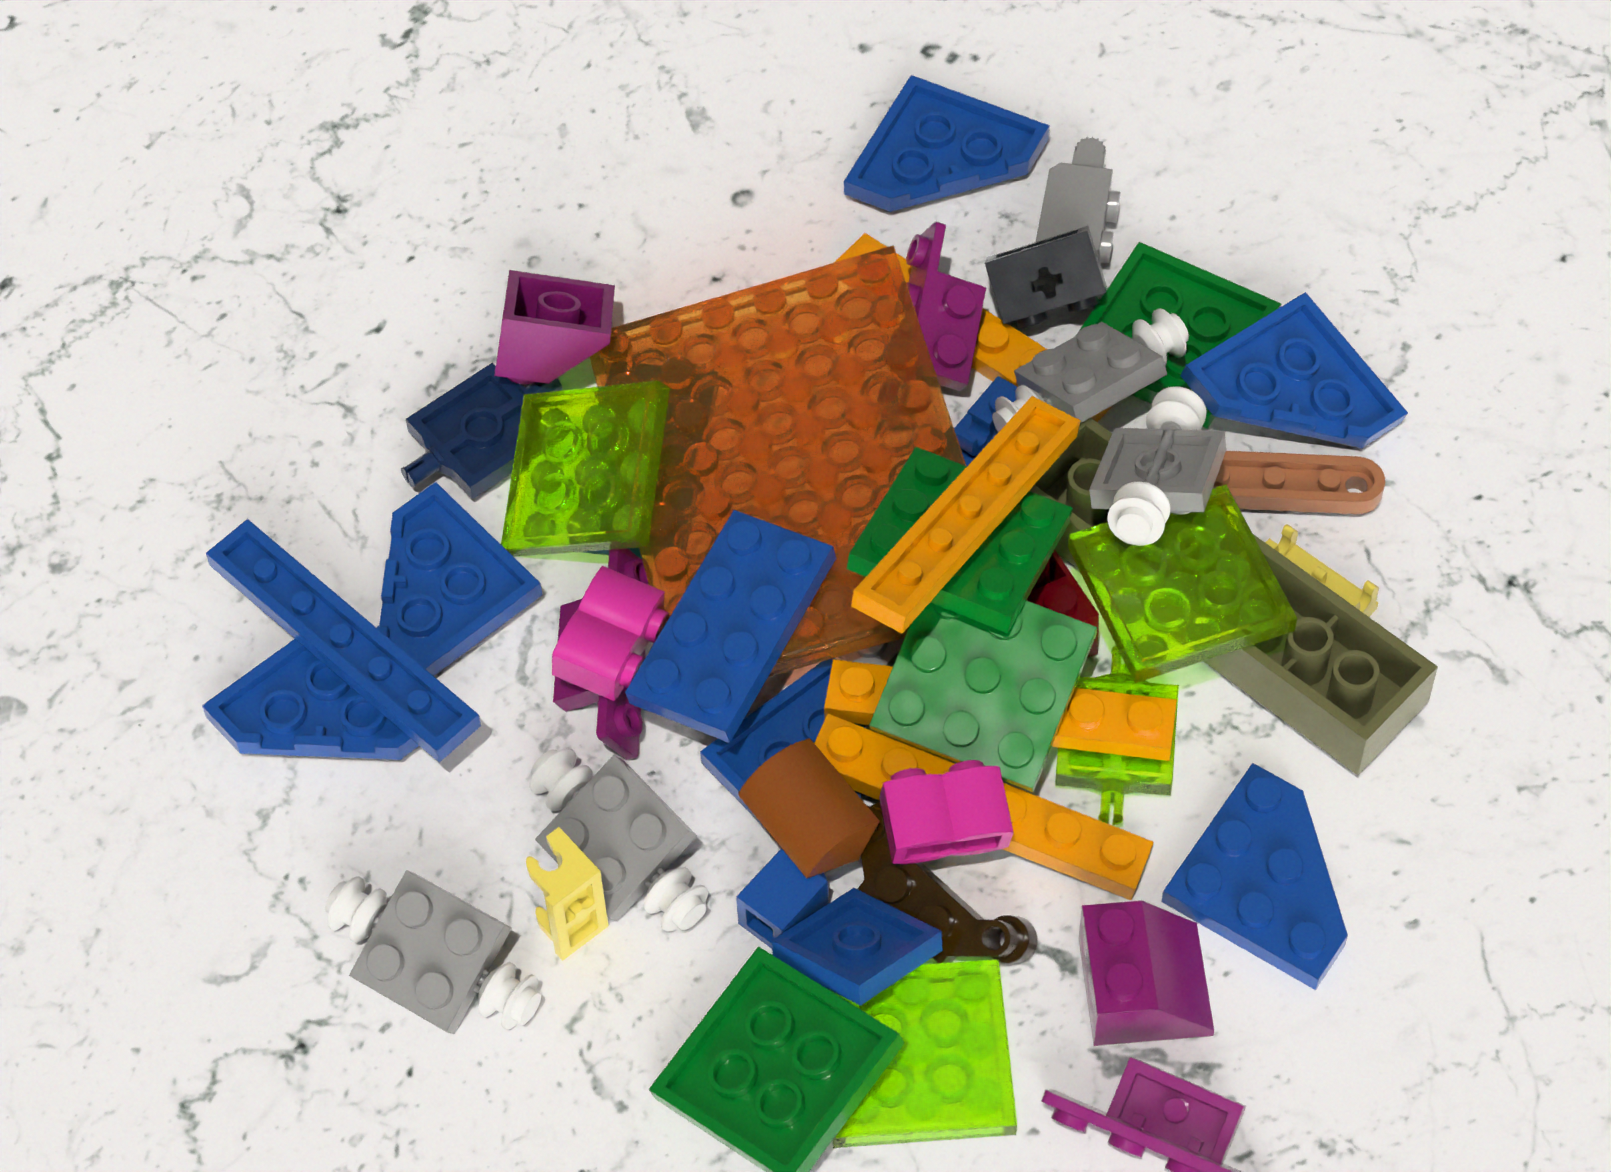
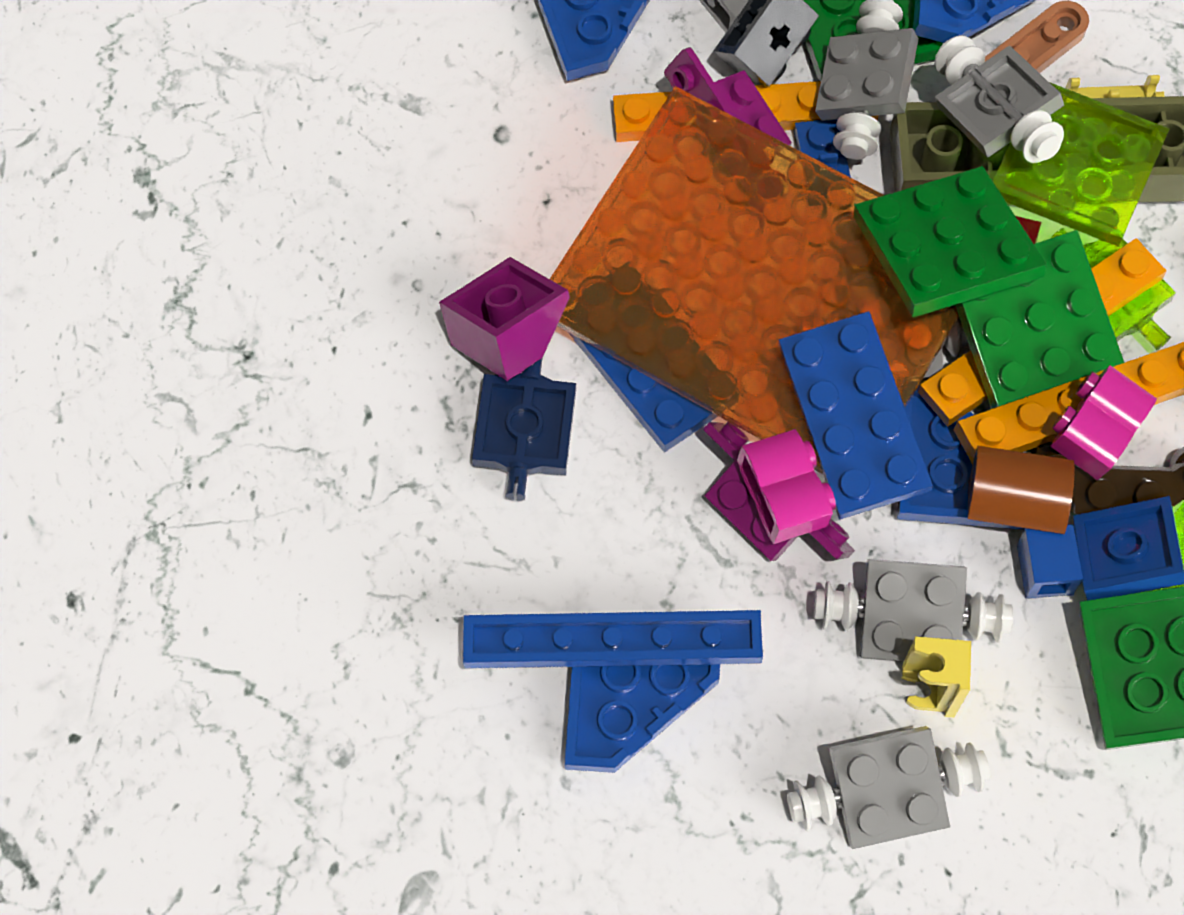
camera: 45 degrees left, 10 degrees up
(447, 581) = (616, 542): blue plate -> none
(585, 469) = (642, 392): clear neon green plate -> none
(965, 515) = (959, 222): light orange plate -> none

